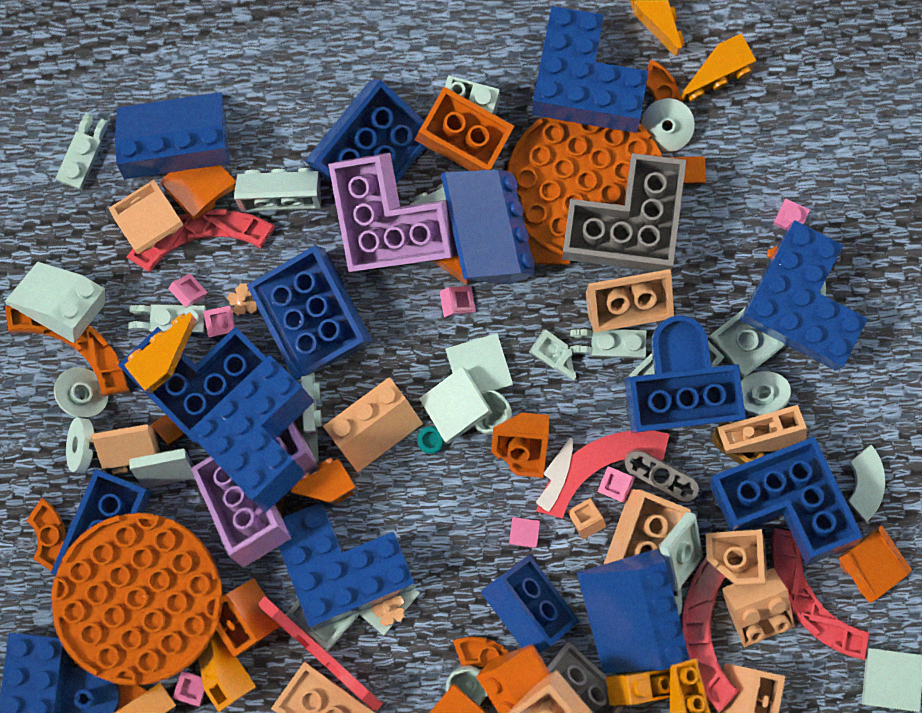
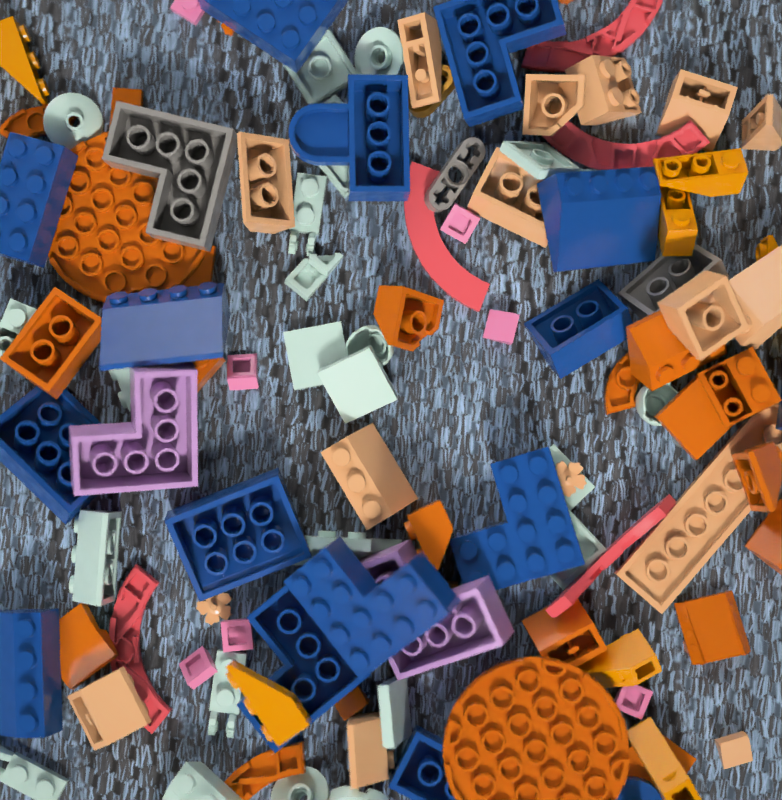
camera: 80 degrees left, 5 degrees up
(430, 440) = (391, 416): teal tile -> none
(557, 474) = (442, 284): white sticker -> none
(587, 518) = (492, 259): light nougat slope -> none

